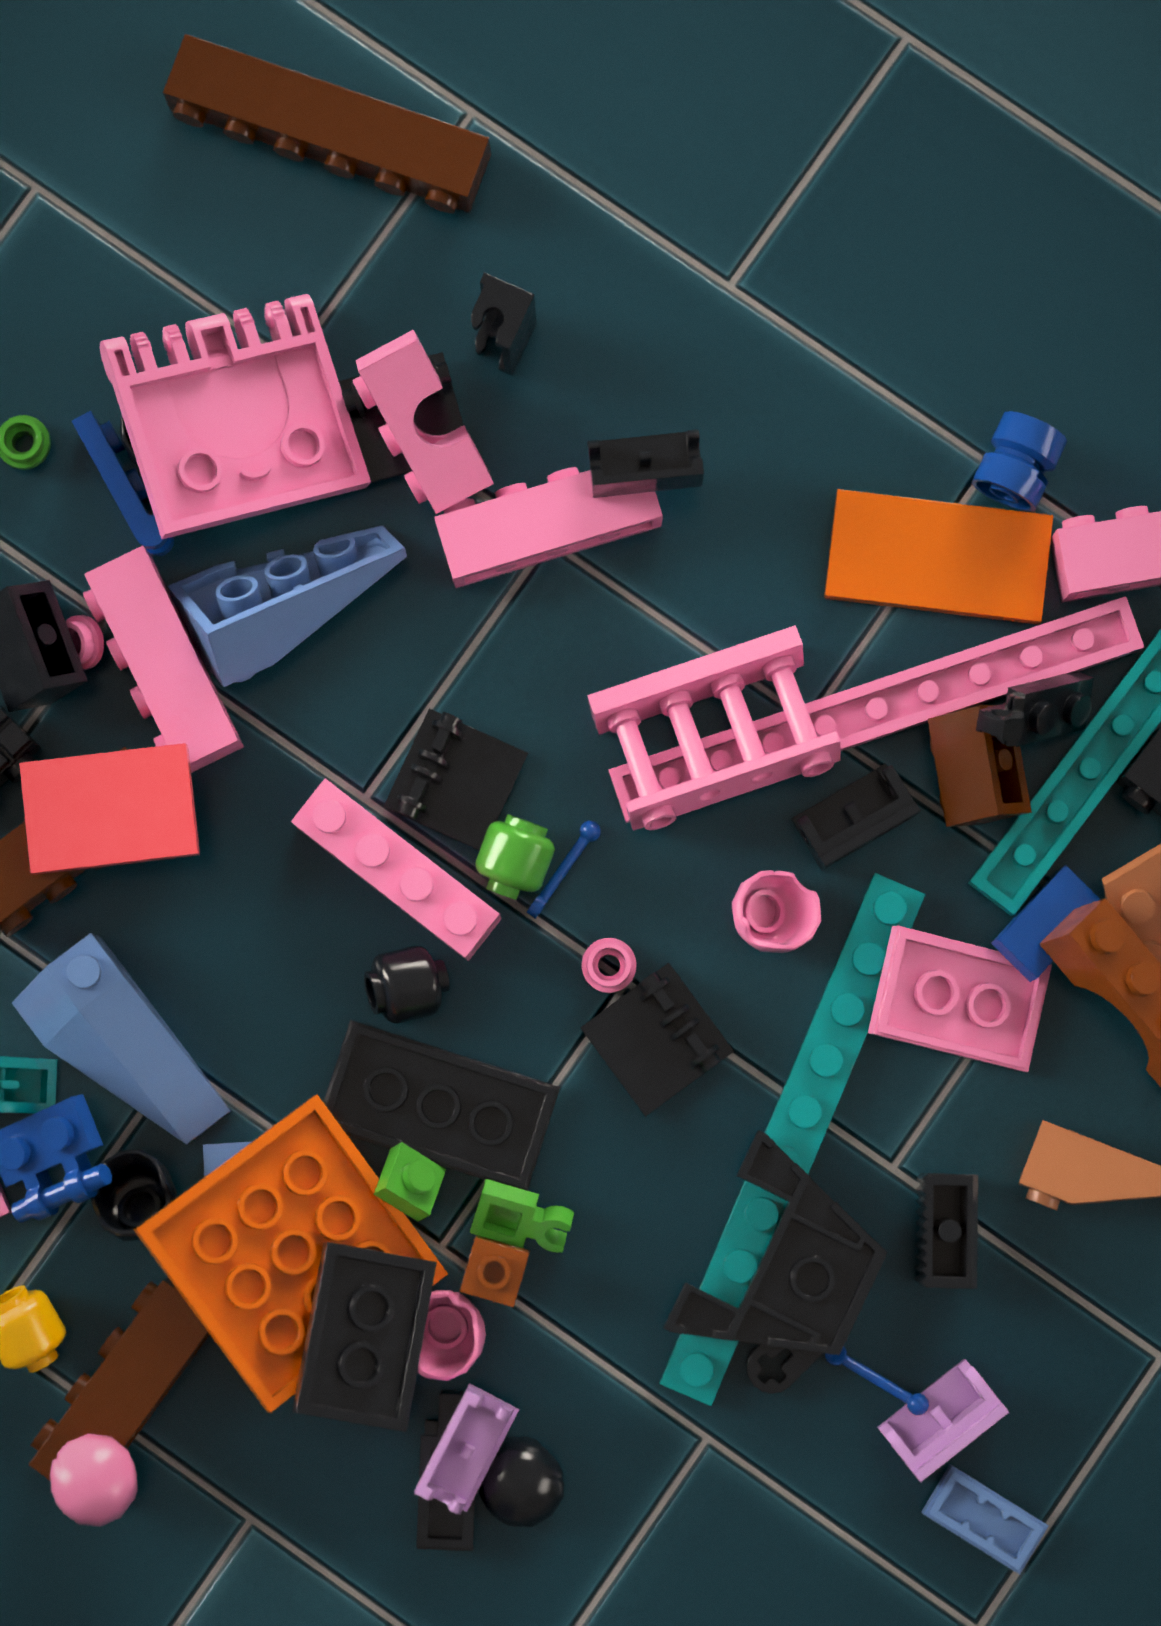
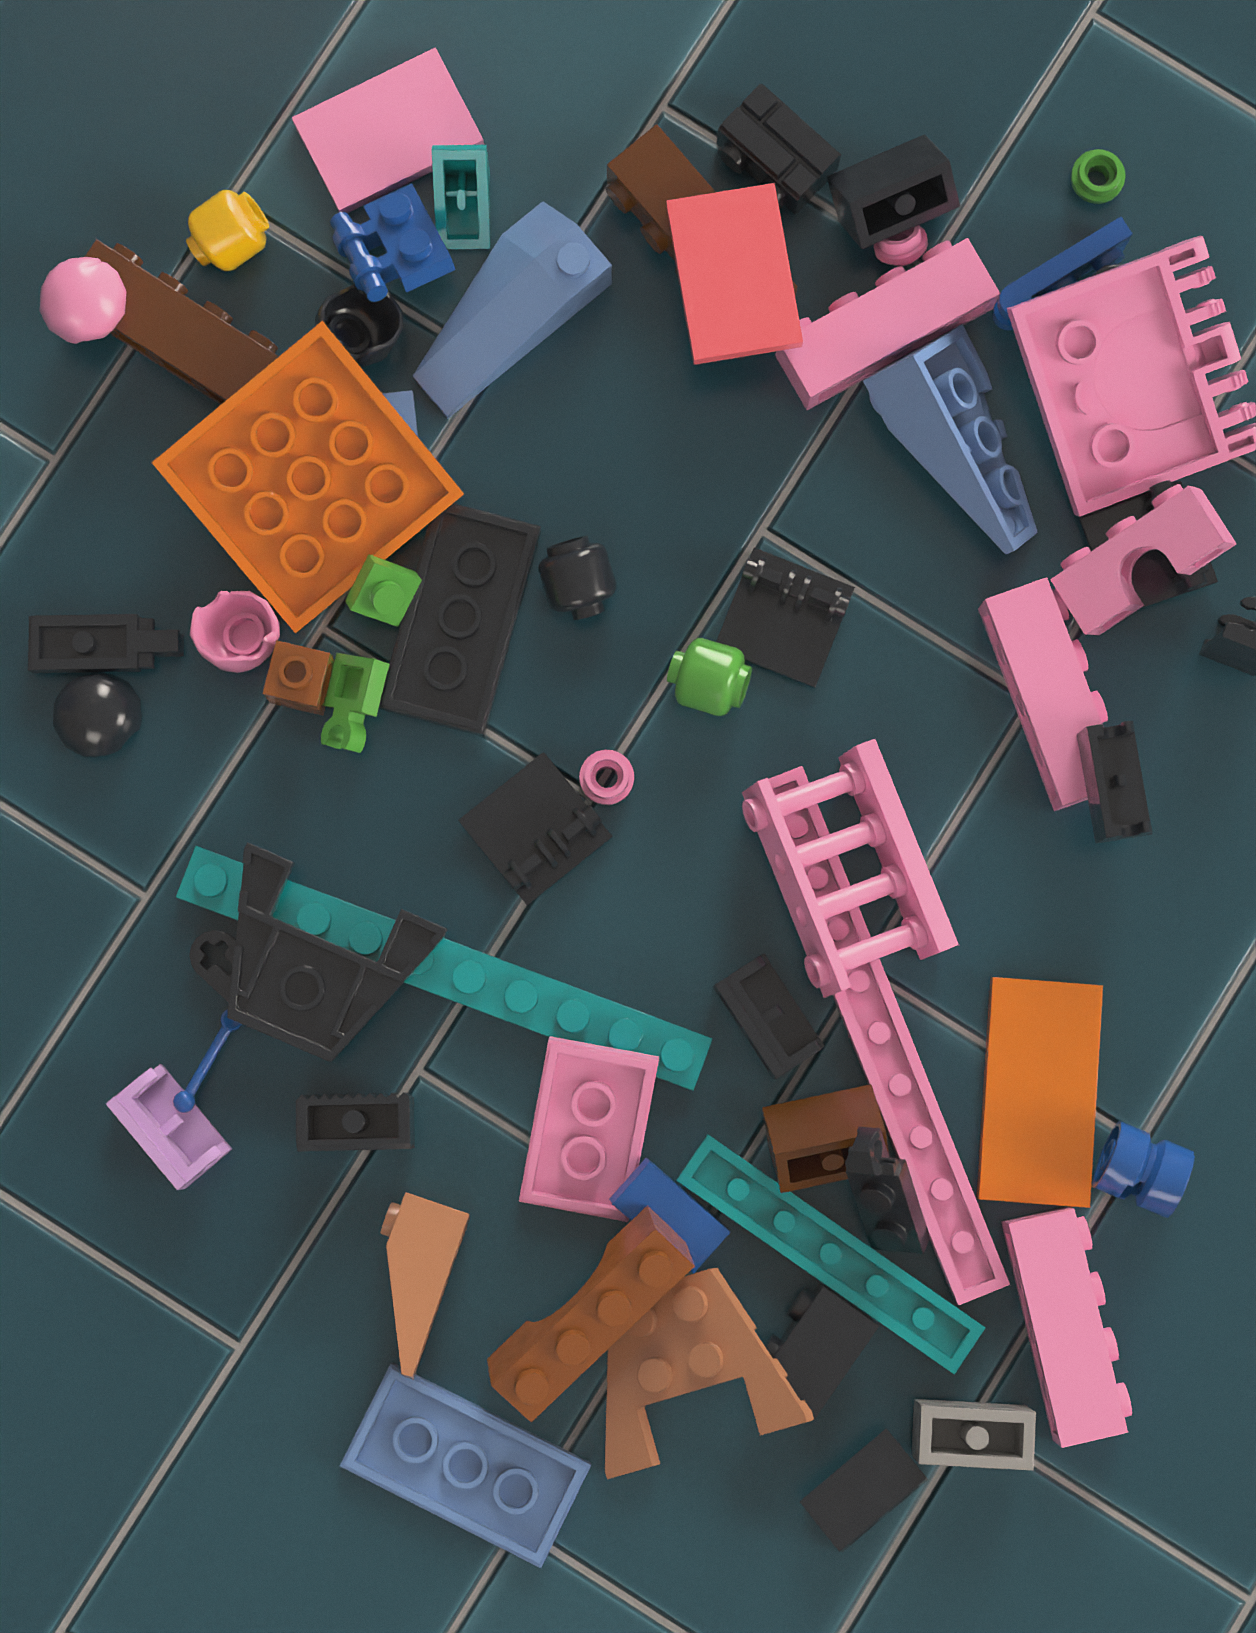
camera: 80 degrees right, 0 degrees up
(364, 1337) = (227, 549): black plate -> none
(396, 869) = (690, 561): bright pink brick -> none
(466, 1449) = (123, 655): lavender hinge -> none
(589, 832) = (739, 752): blue hinge -> none
(775, 912) = (667, 938): bright pink hair -> none
(984, 1519) = (73, 1173): medium blue plate -> none

